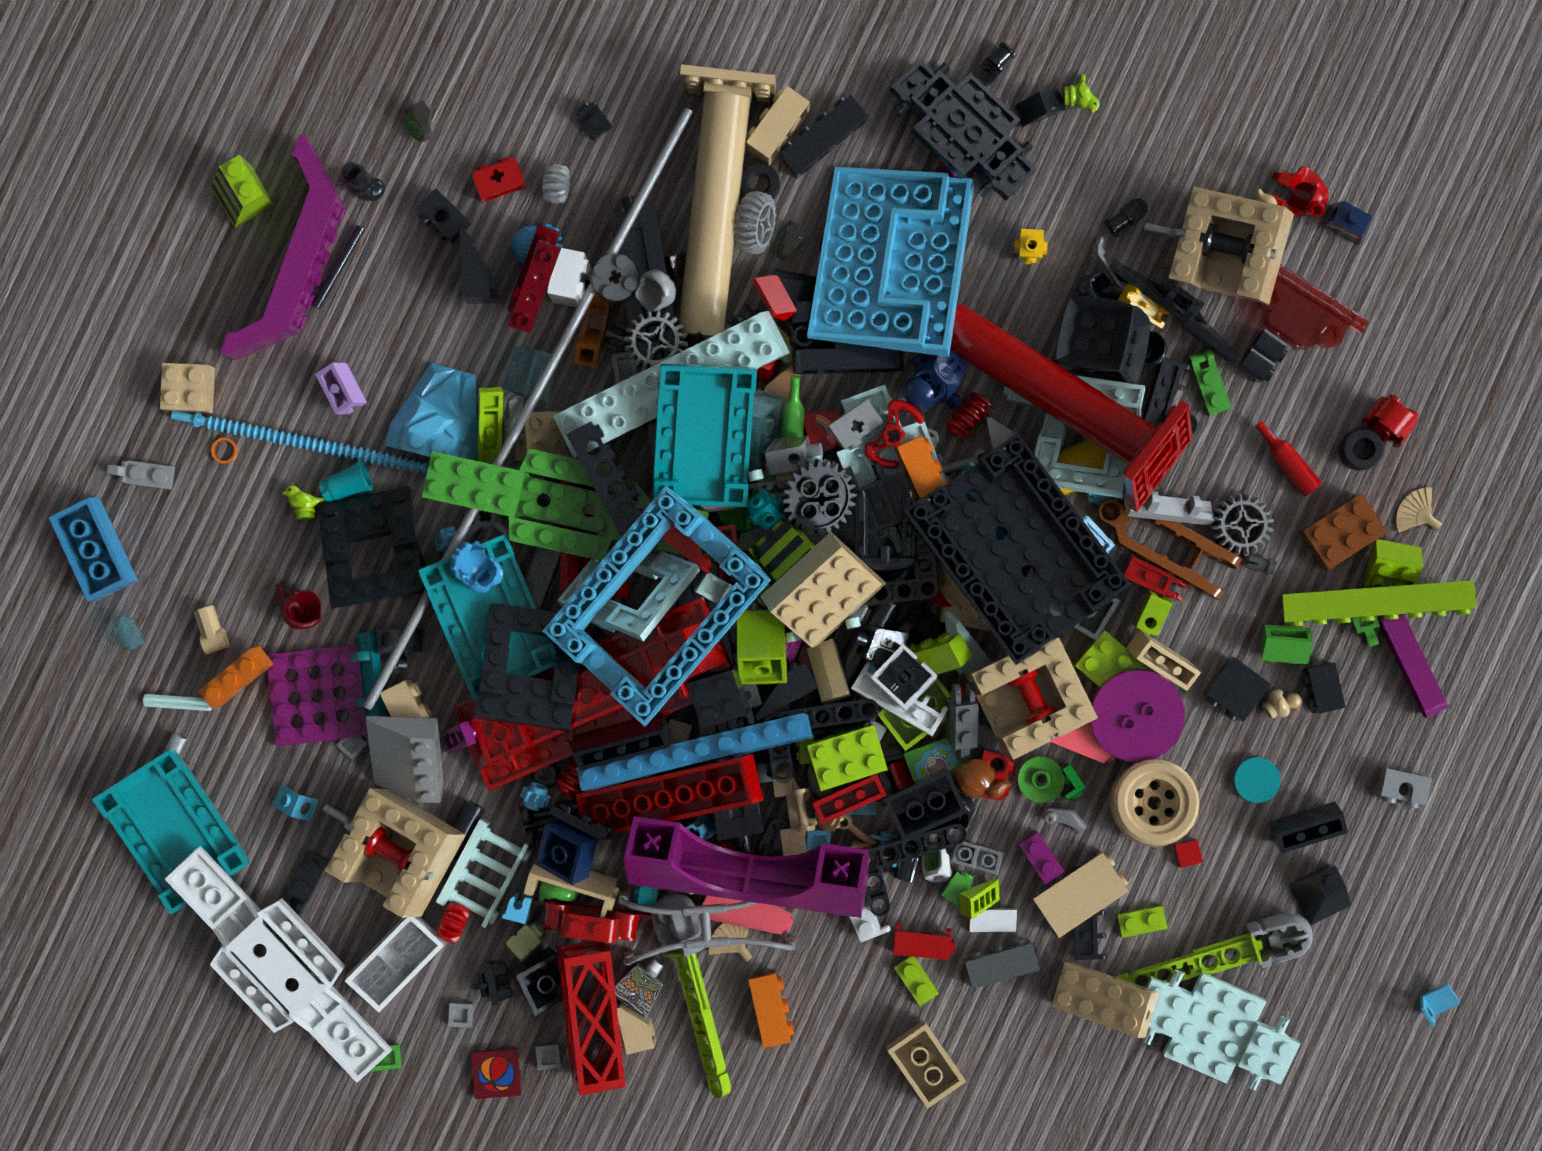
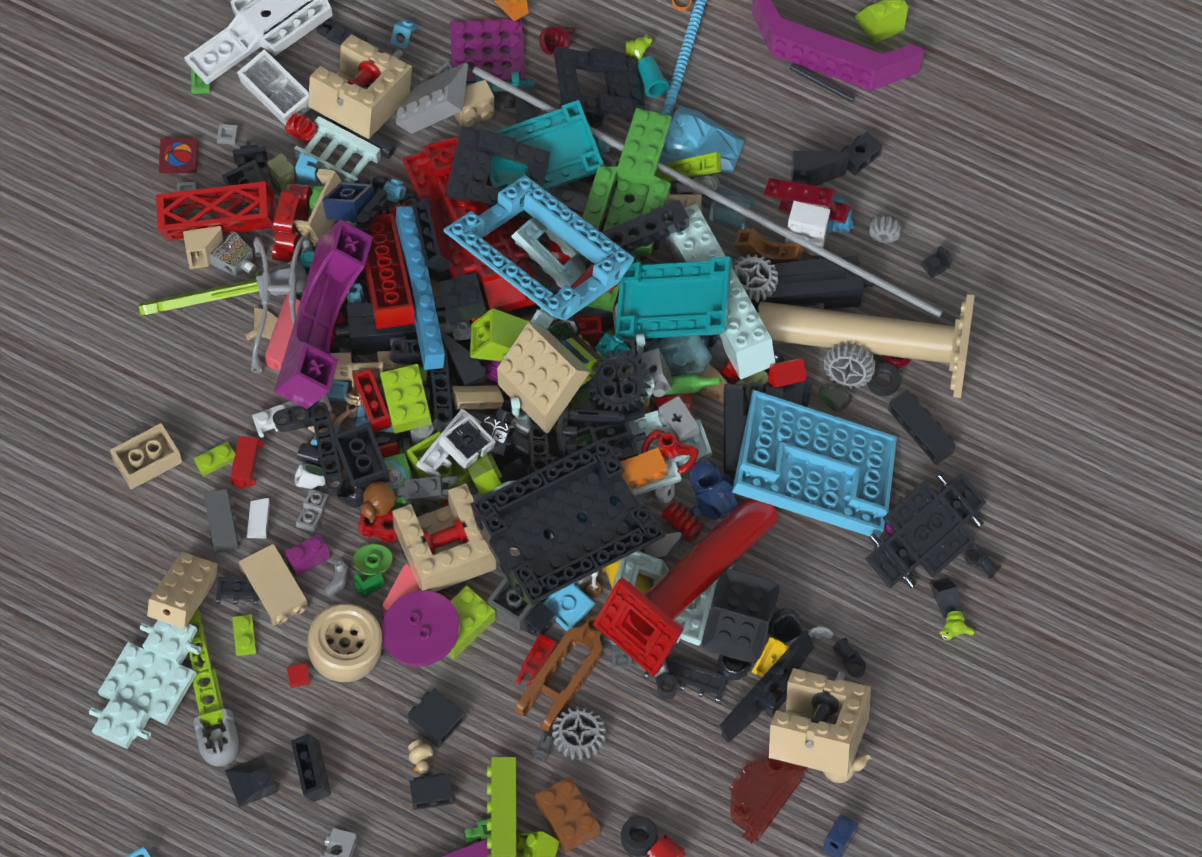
camera: 90 degrees right, 25 degrees down
(340, 388) = (726, 75): lavender brick -> none
(360, 180) = (889, 95): black piece -> none
(418, 121) = (937, 140): clear smoke rock -> none
(459, 737) = (446, 133): magenta plate -> none
(475, 568) = (578, 137): dark azure hair -> none
(510, 179) = (889, 192): red brick -> none
(626, 283) = (800, 261): dark grey plate -> none
(655, 290) = (793, 279): light grey hair -> none
(771, 1009) = (205, 347): orange brick -> none
(777, 125) = (930, 388): tan brick -> none
(958, 883) = (288, 491): bright green brick -> none
(967, 898) = (270, 501): lime slope -> none
(1033, 238) = (826, 577): yellow brick -> none
(1152, 606) = (505, 652): lime torso -> none
(1163, 660) = (466, 655): tan brick -> none
(1173, 509) = (595, 670): light grey hinge -> none
(1209, 382) = (702, 717): bright green plate -> none
(1256, 779) = (356, 734): teal tile -> none
(1262, 356) = (724, 759): black brick -> none
(1286, 644) = (472, 760): bright green brick -> none
(1290, 462) = (630, 776): red piece -> none
(1308, 192) = (865, 806): red piece -> none

